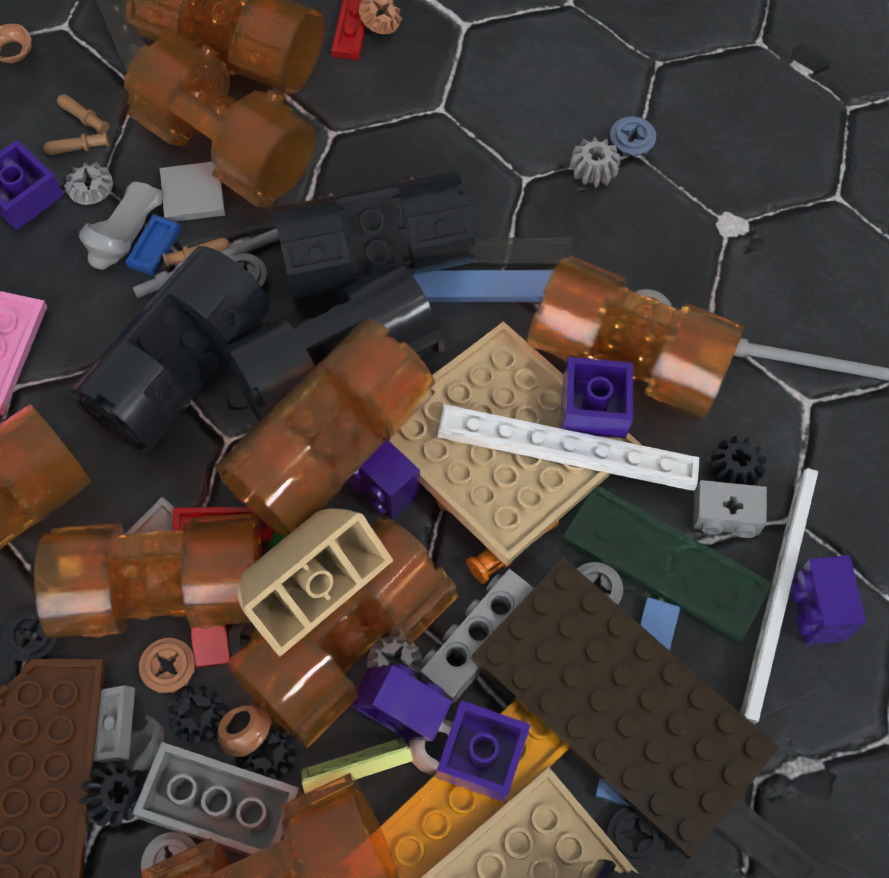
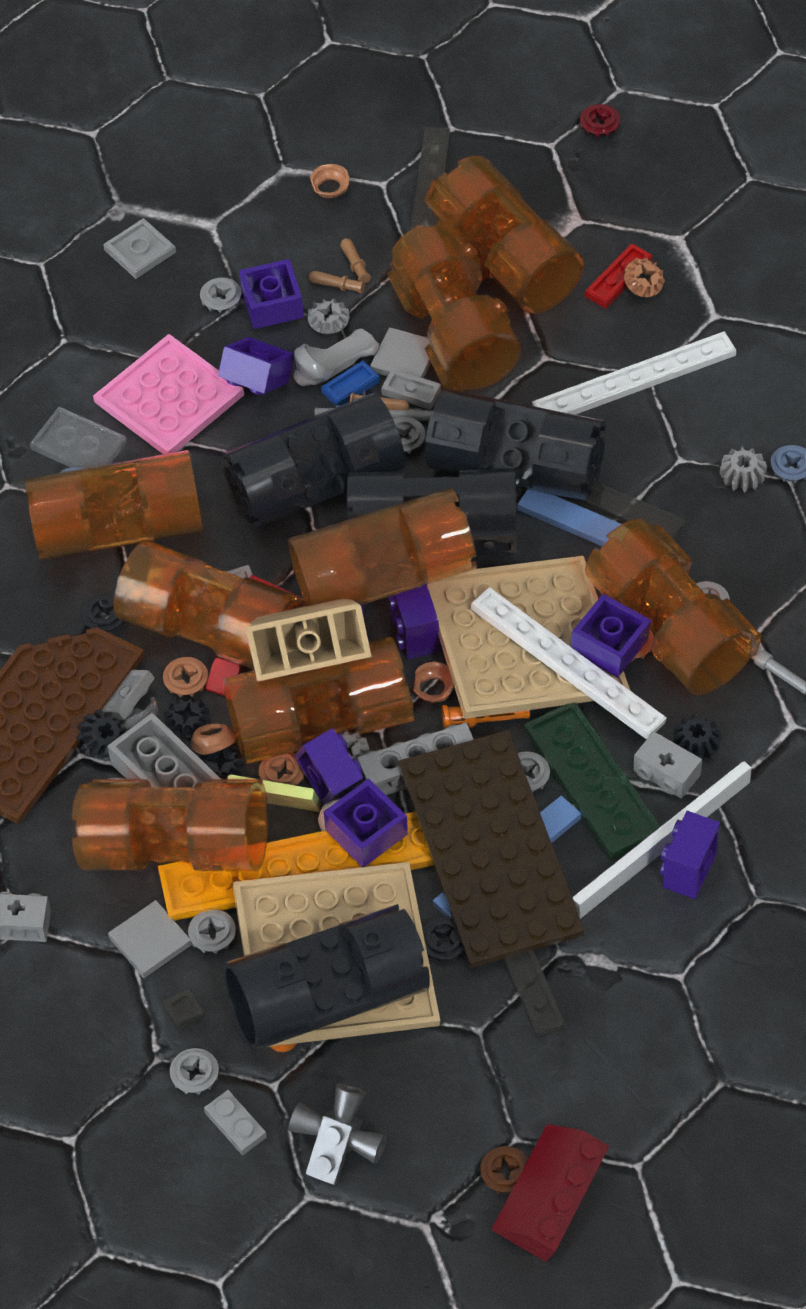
camera: 35 degrees right, 10 degrees down
(45, 270) = (255, 365): none -> dark purple brick
(221, 223) = (411, 388): none -> light grey plate
(354, 734) = (269, 766): none -> nougat gear
(432, 115) = (640, 375): none -> white tile
(444, 519) = (429, 671): none -> nougat piece

